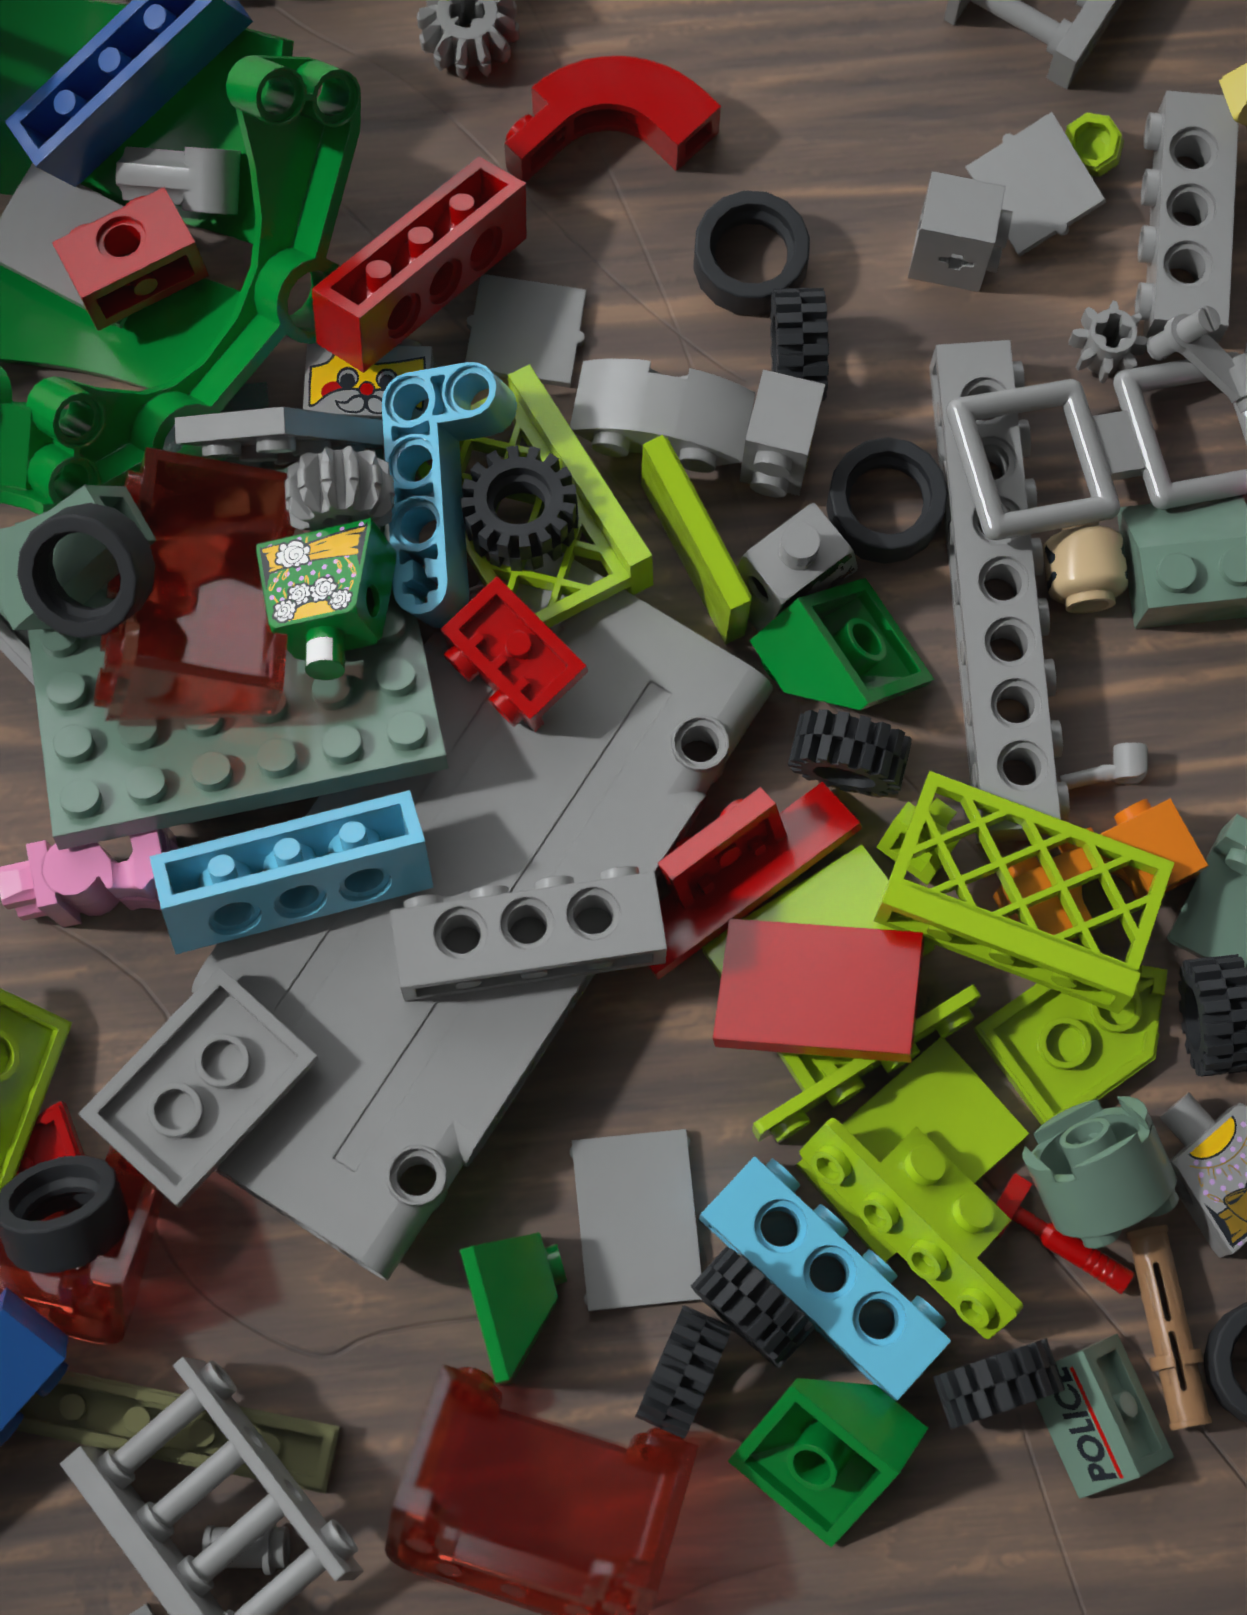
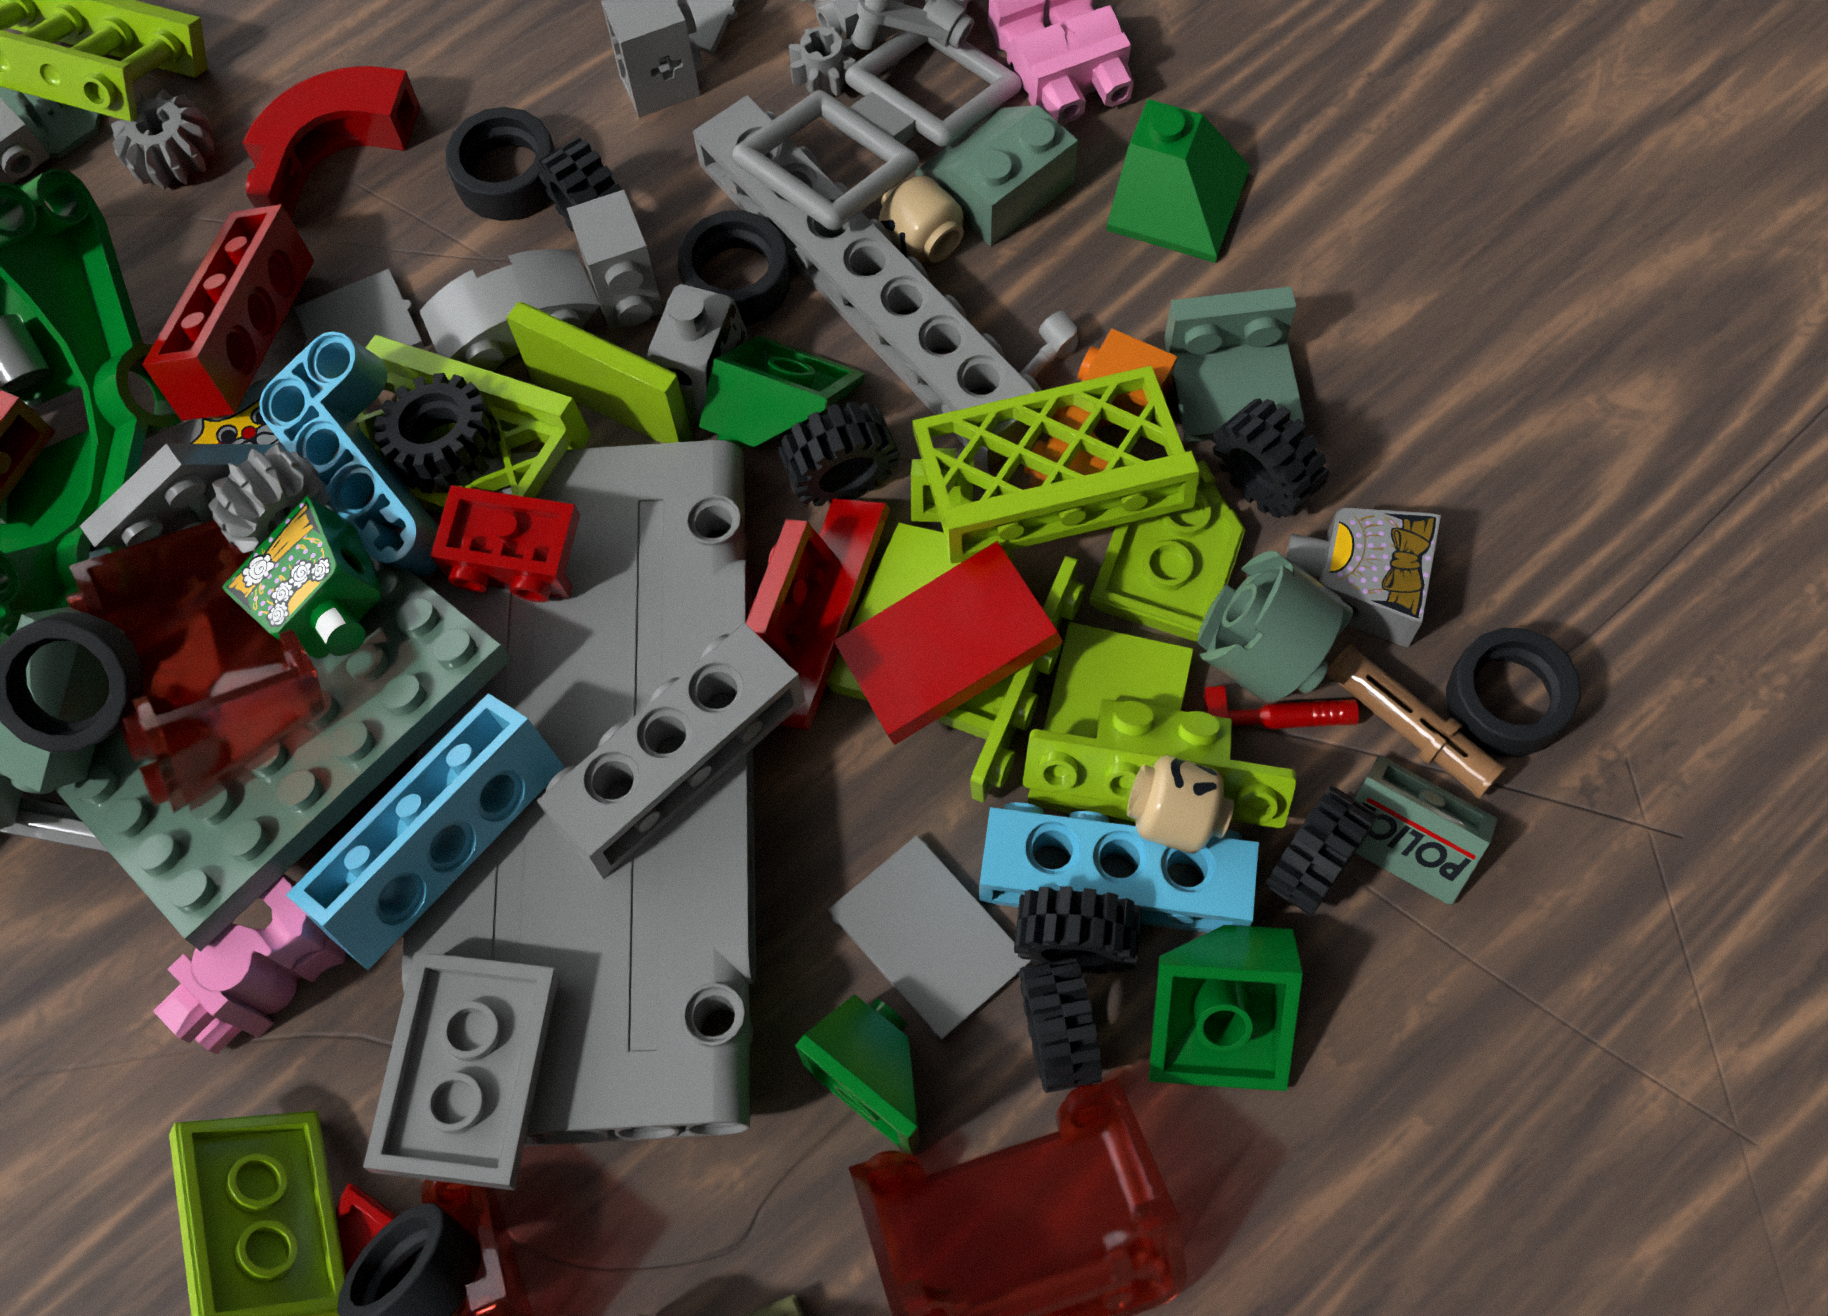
camera: 30 degrees left, 10 degrees down
(905, 1267) = (1179, 804): none -> tan head

